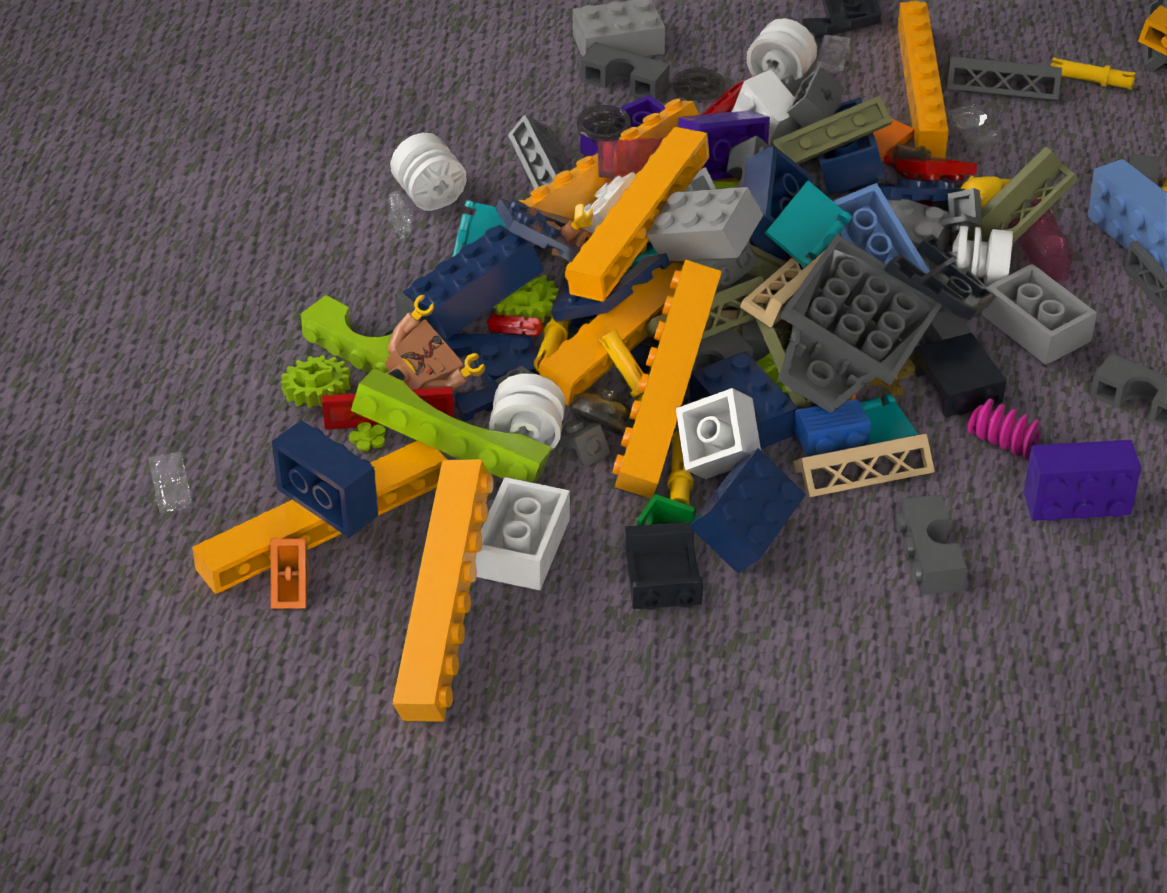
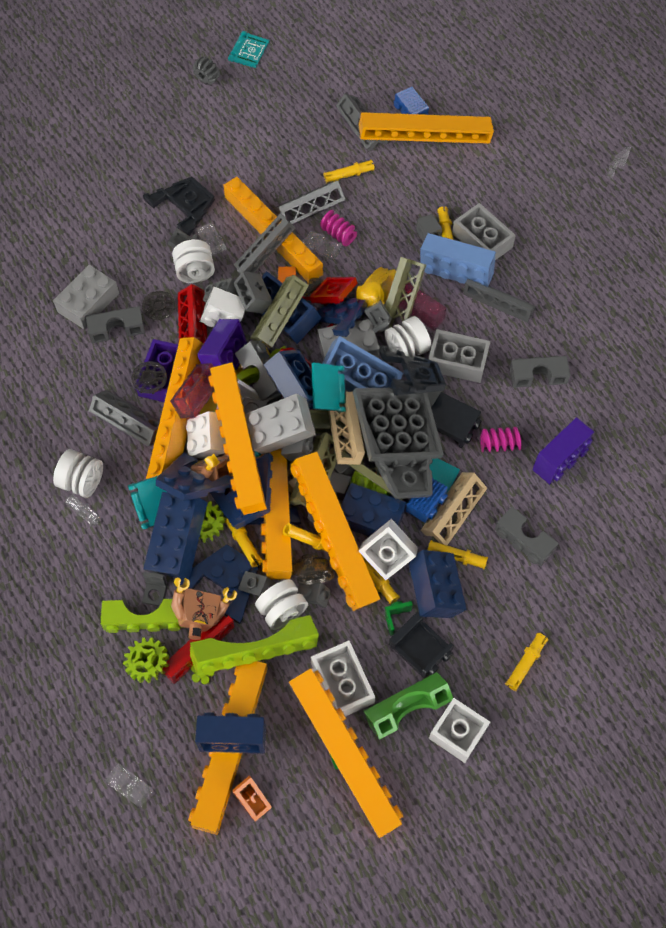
camera: 40 degrees left, 20 degrees up
(515, 325) = (215, 543): red axle -> none
(577, 606) = (428, 693): none -> bright green arch
(614, 671) = (459, 730): none -> white brick
(803, 666) = (531, 654): none -> yellow pin
(823, 518) = (460, 555): none -> yellow pin
(896, 77) = (275, 234): none -> dark grey fence
(1013, 117) = (338, 228): none -> dark pink piece

